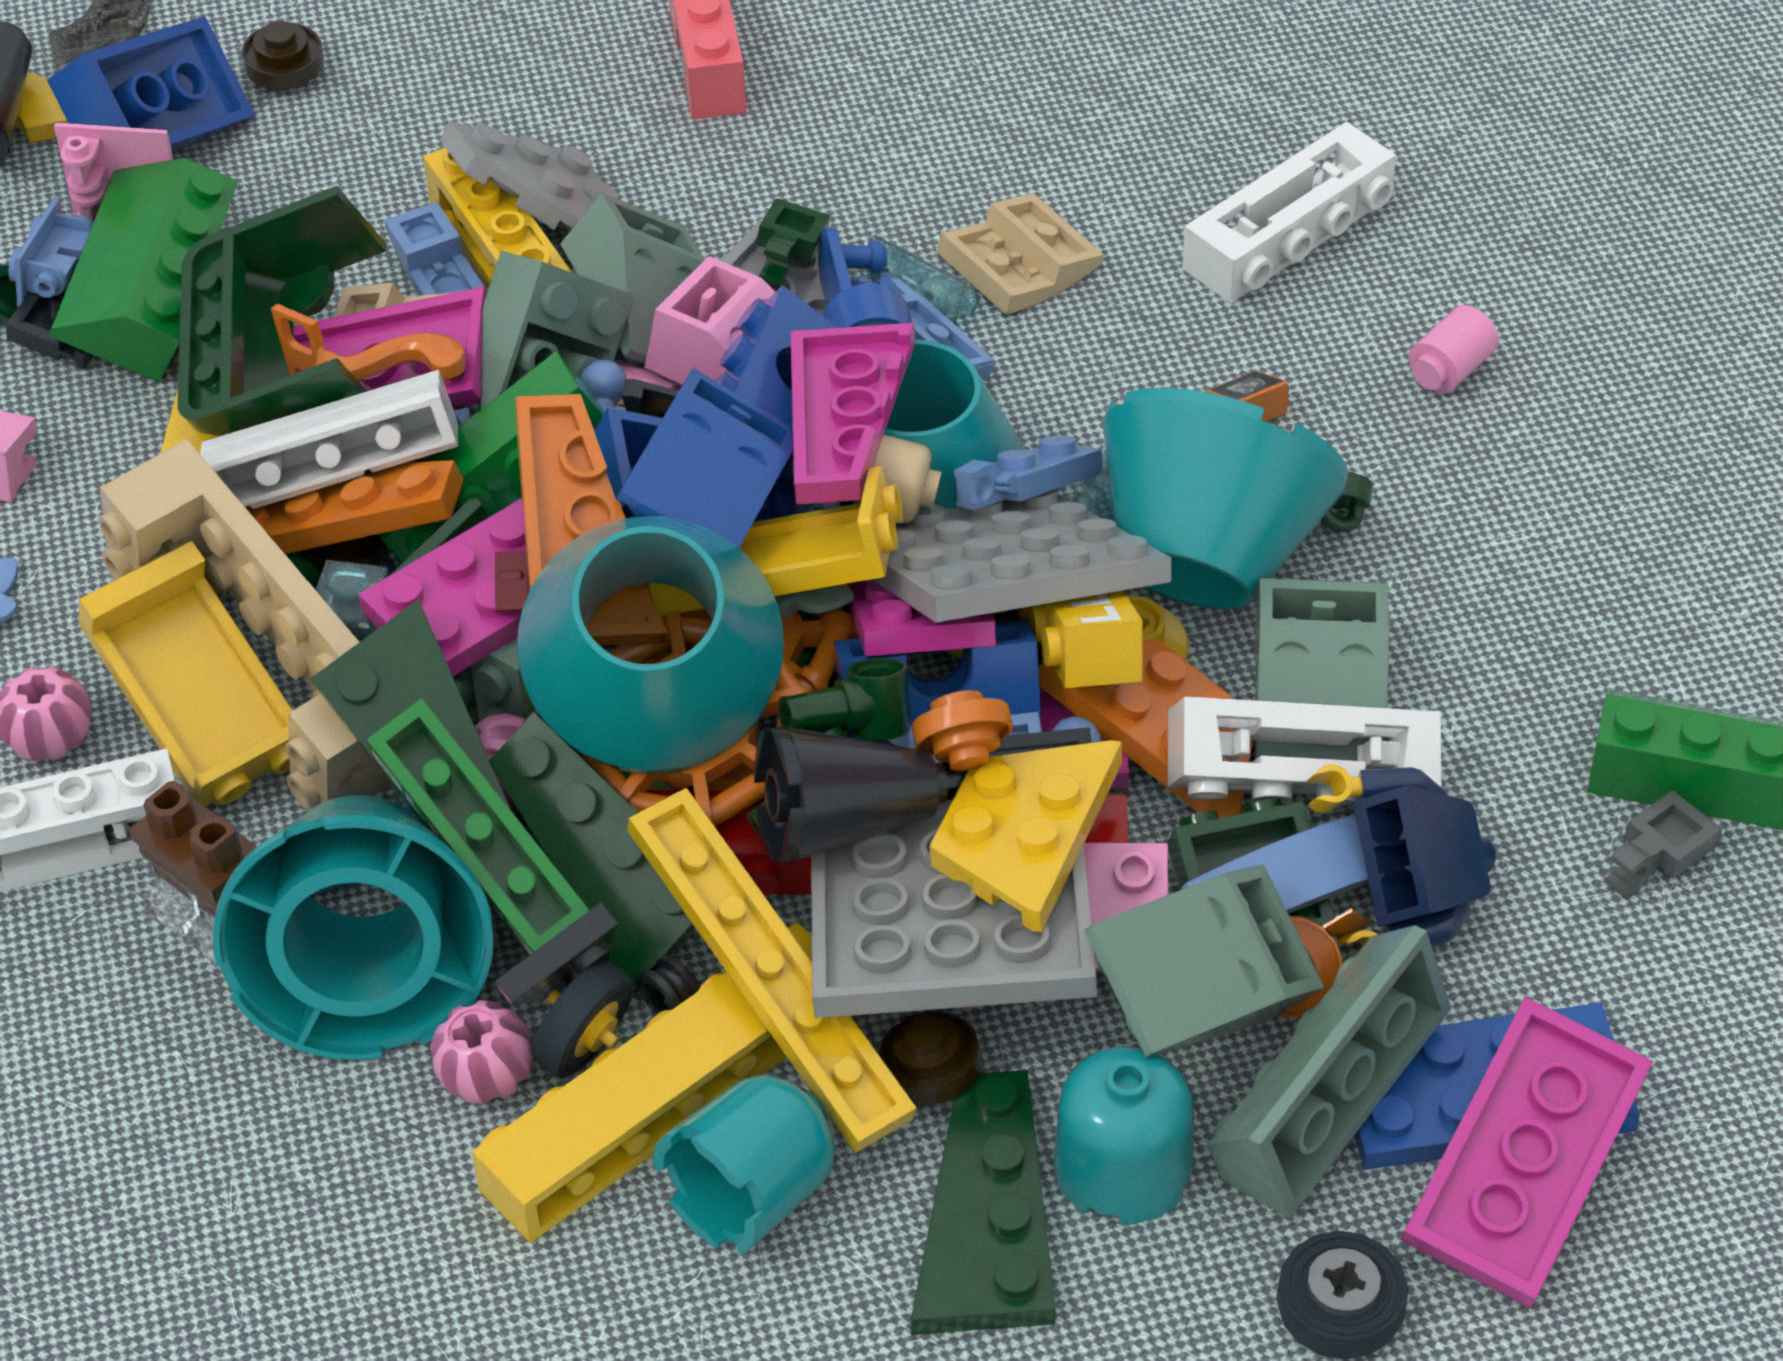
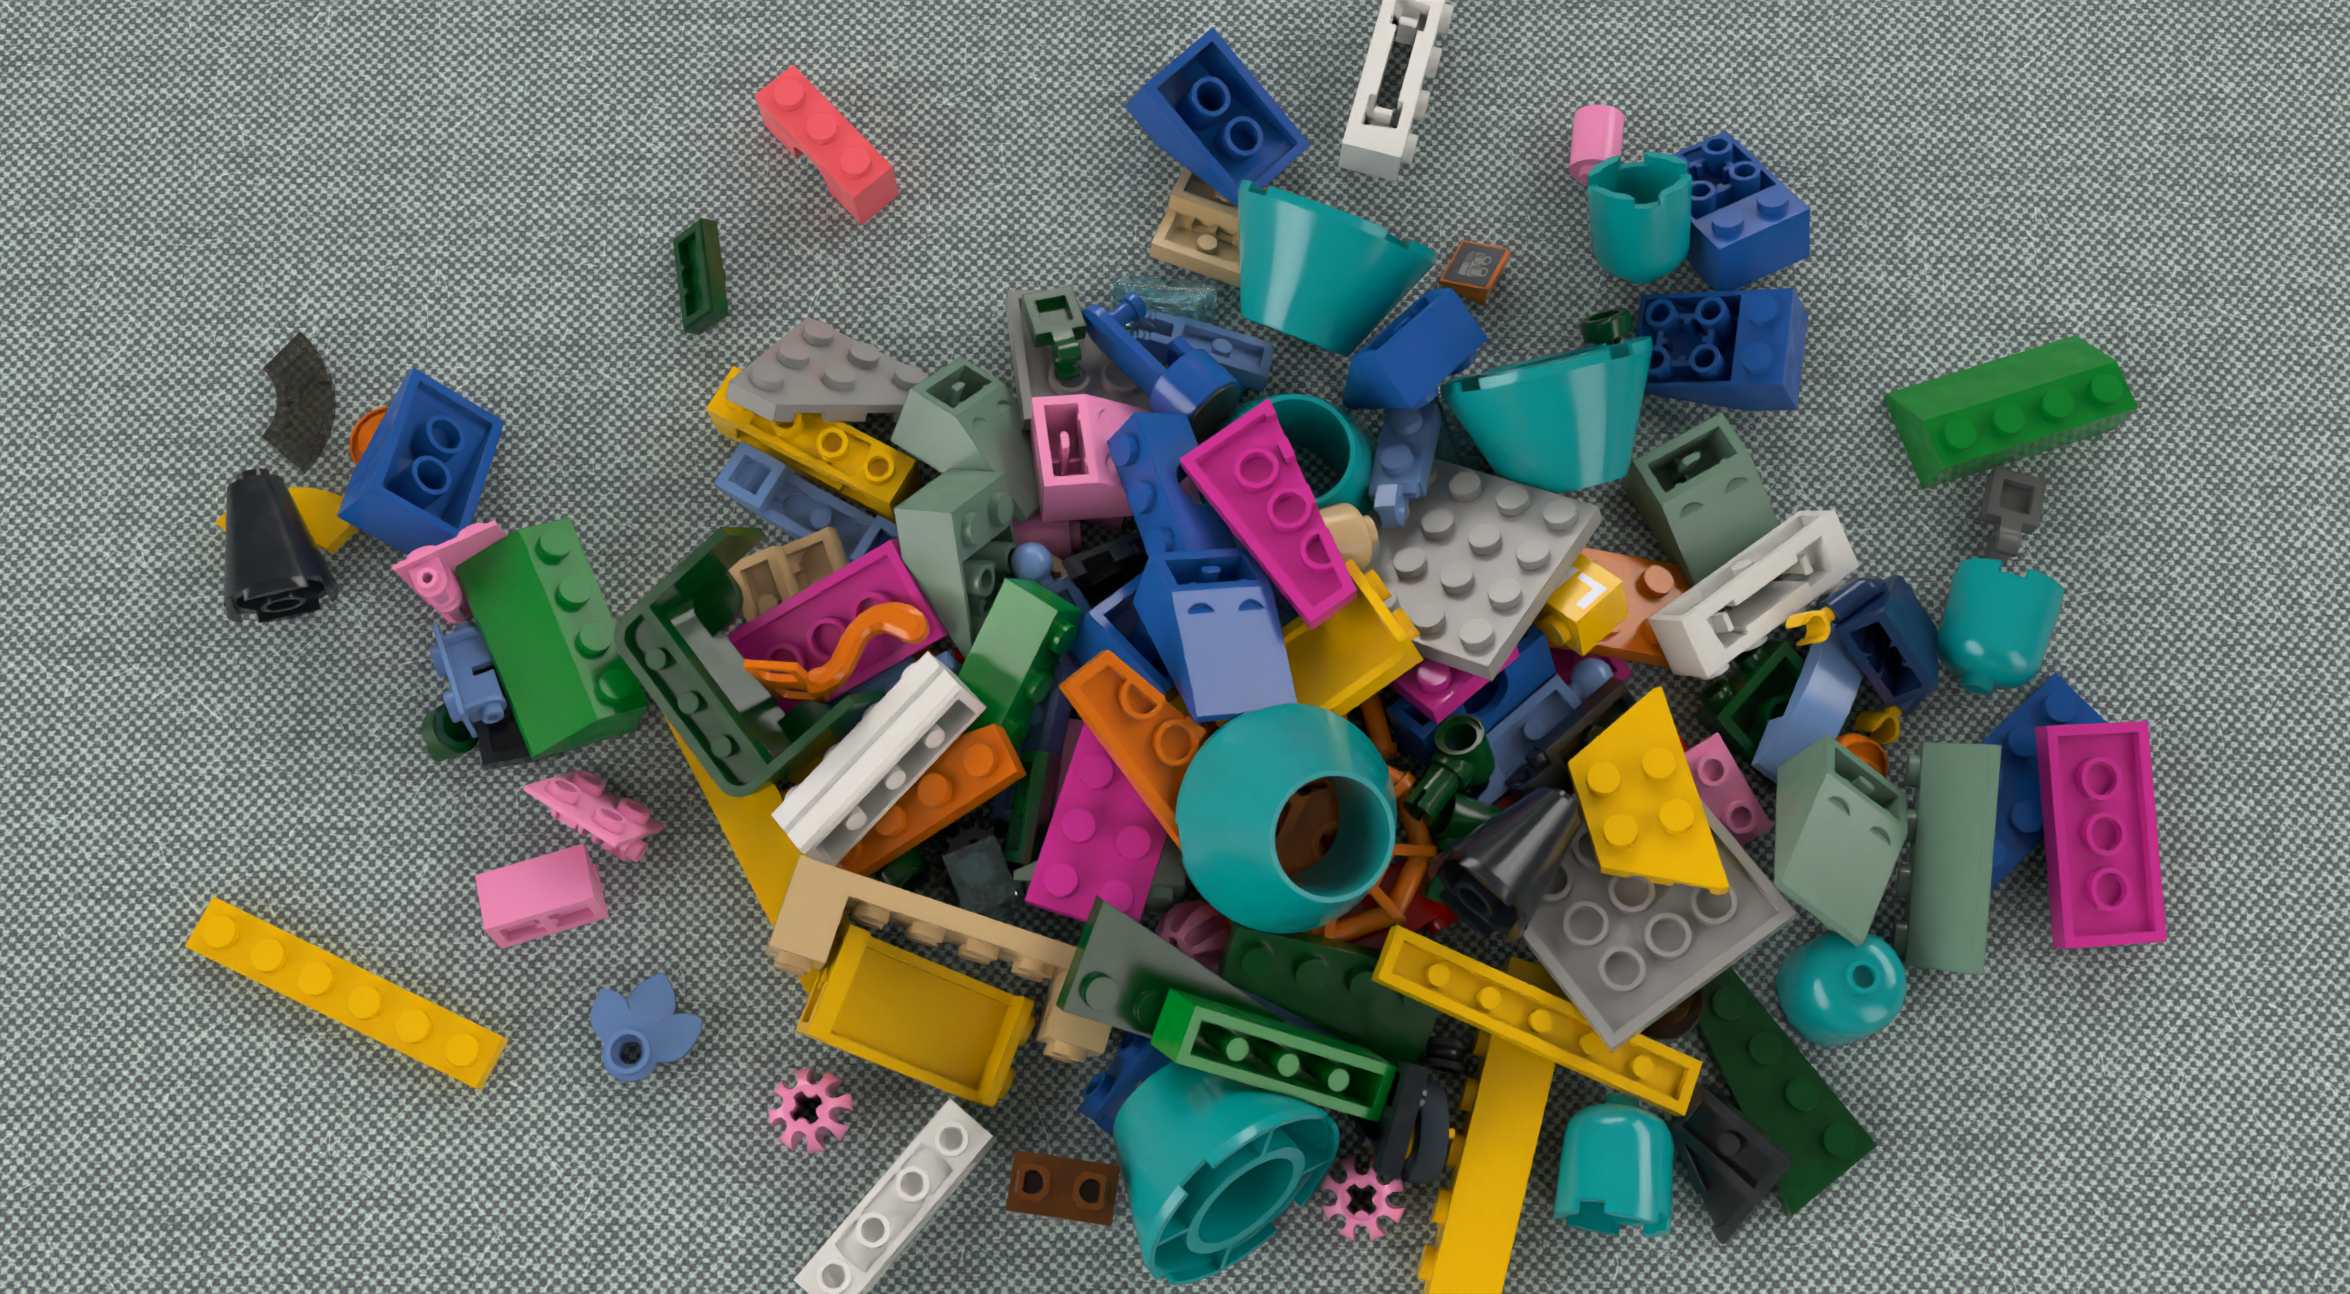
camera: 35 degrees left, 25 degrees up
(66, 406) = (586, 805): none -> bright pink hinge
(282, 55) = (486, 351): dark brown plate -> none
(510, 581) = (1139, 823): dark red piece -> none
(513, 82) = (700, 276): none -> dark green plate
(881, 1229) = (1727, 1159): none -> black wing
(963, 729) = (1563, 756): orange plate -> none
(1070, 292) = (1320, 268): none -> teal cone
(1081, 160) = (1217, 118): none -> blue slope
(1087, 366) = (1414, 354): none -> blue slope
(1346, 923) = (1864, 715): orange piece -> none
(1348, 1321) = (2025, 1021): black wheel -> none
(1435, 406) = (1640, 216): none -> teal cylinder
(1457, 565) = (1726, 347): none -> blue slope
(1549, 462) = (1740, 216): none -> blue slope
(1555, 908) = (1997, 625): none -> teal cylinder

